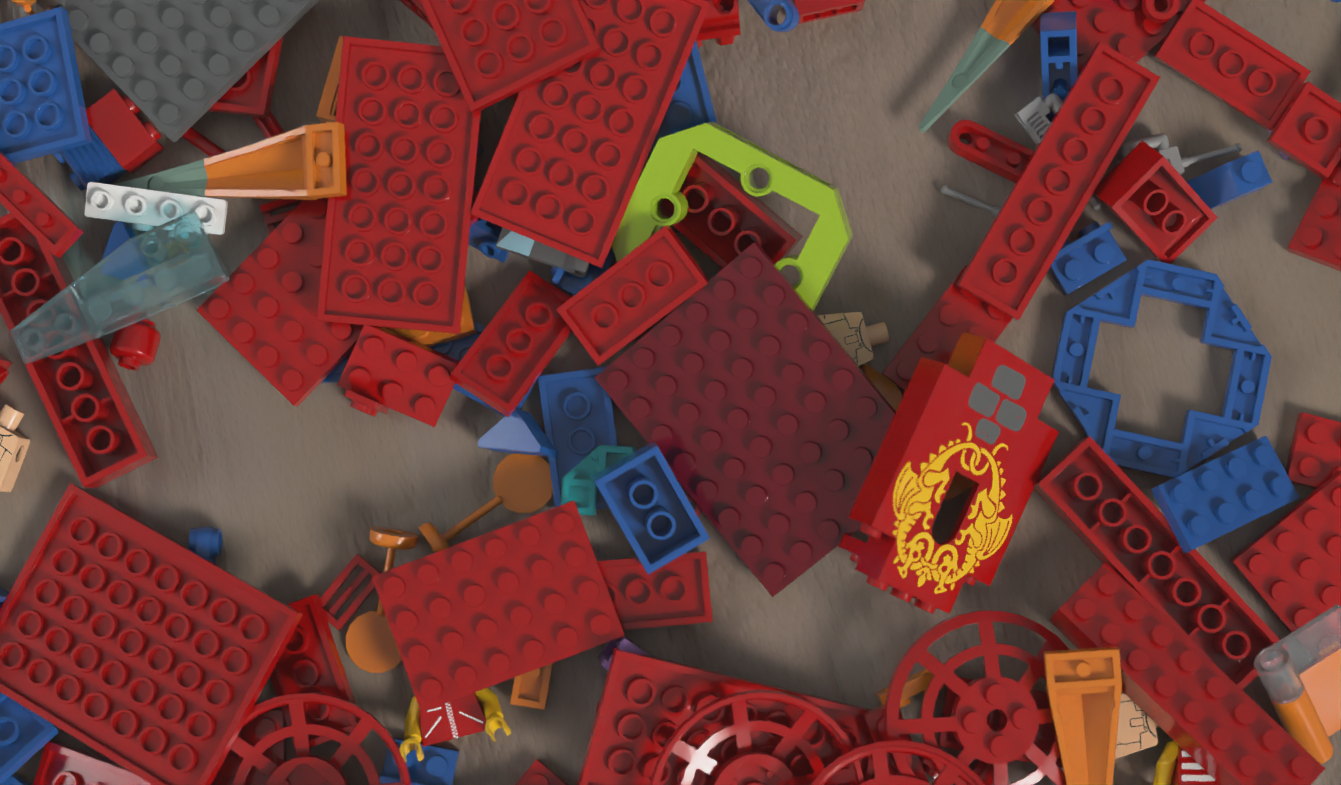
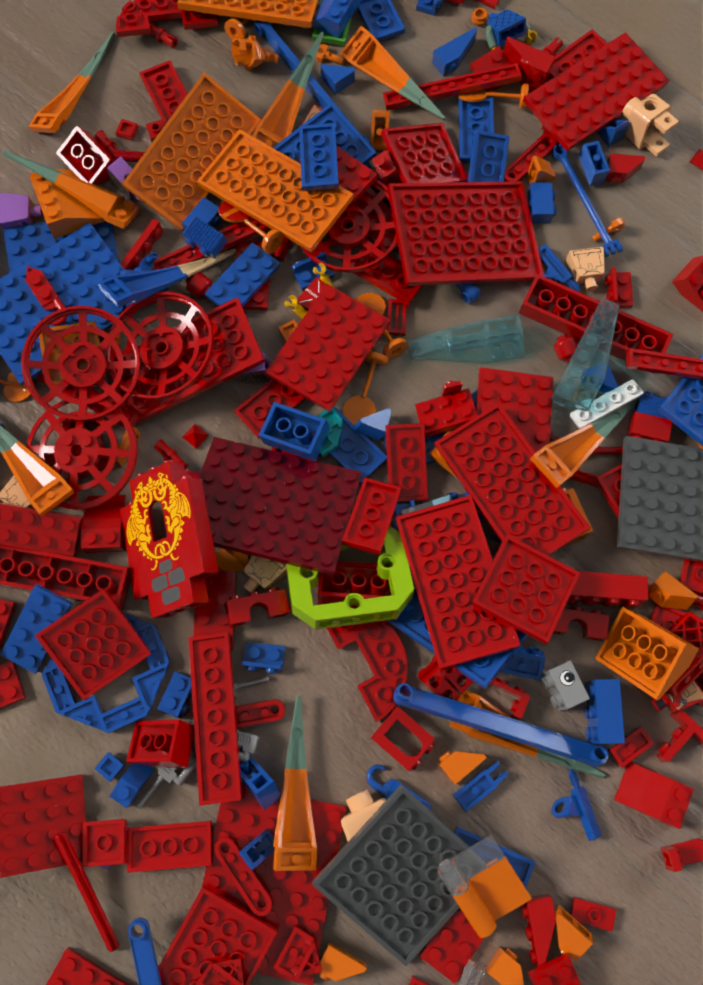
camera: 140 degrees right, 10 degrees down
(42, 480) = (556, 270): none -> blue piece
(270, 457) = (473, 342): none -> clear light blue wedge
(763, 92) = (383, 655): none -> red plate
(796, 628) = (195, 436): none -> red slope
(856, 621) = (168, 453): none -> red pin
(918, 307) = (273, 602): none -> red arch
(930, 221) = (264, 657): none -> blue bracket
(1029, 583) = (103, 527): none -> red slope
(1159, 407) = (93, 644): none -> red plate
(1243, 229) = (109, 766): none -> blue plate

